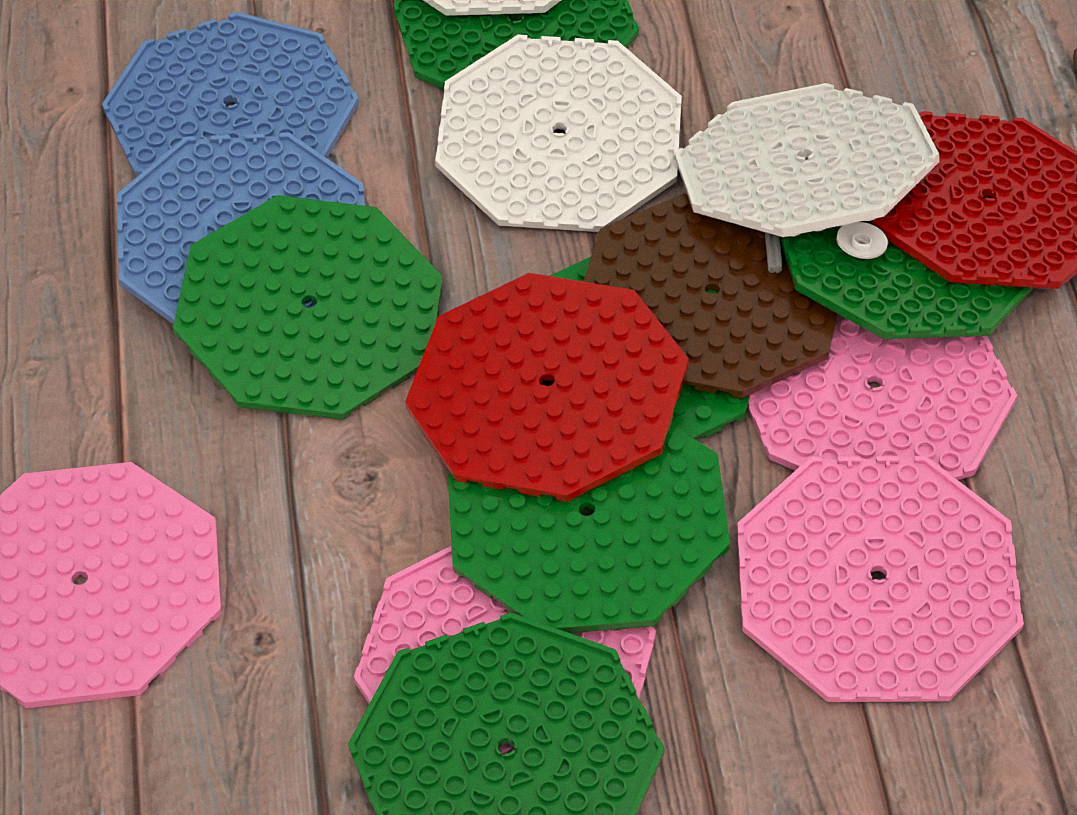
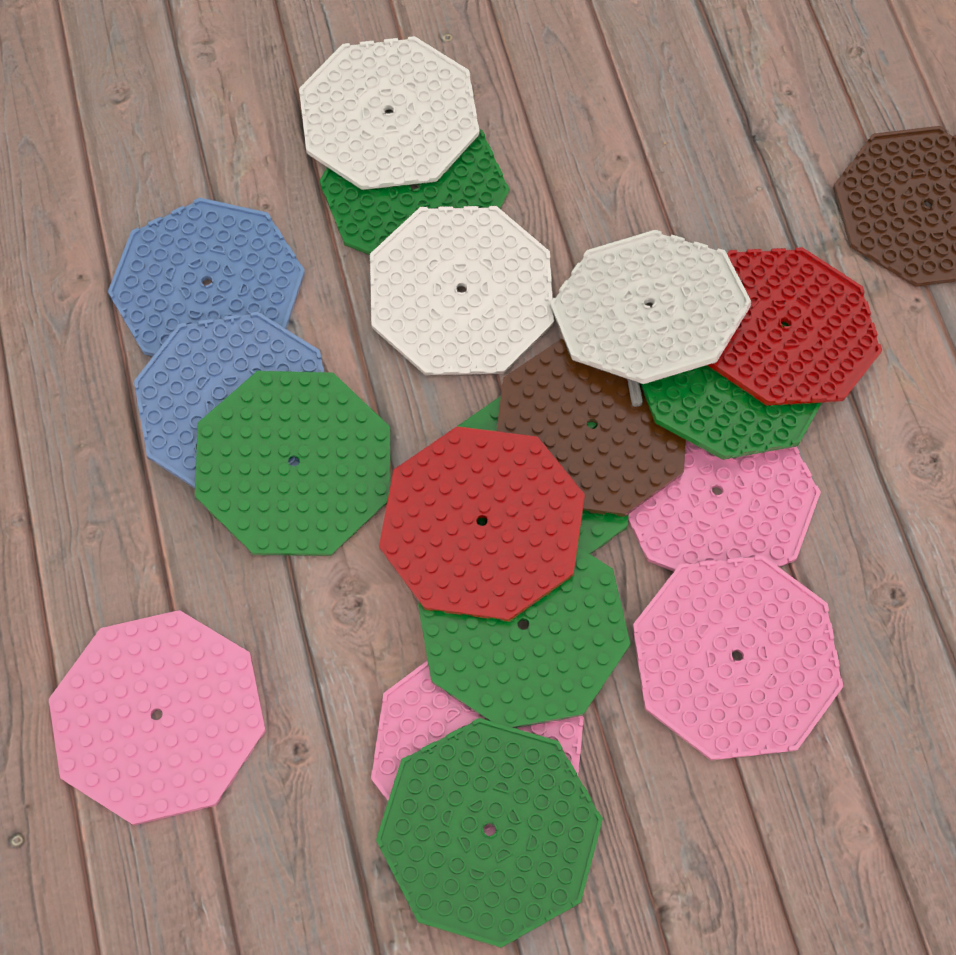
camera: 10 degrees left, 15 degrees up
(862, 240) = (706, 374): white dish -> none

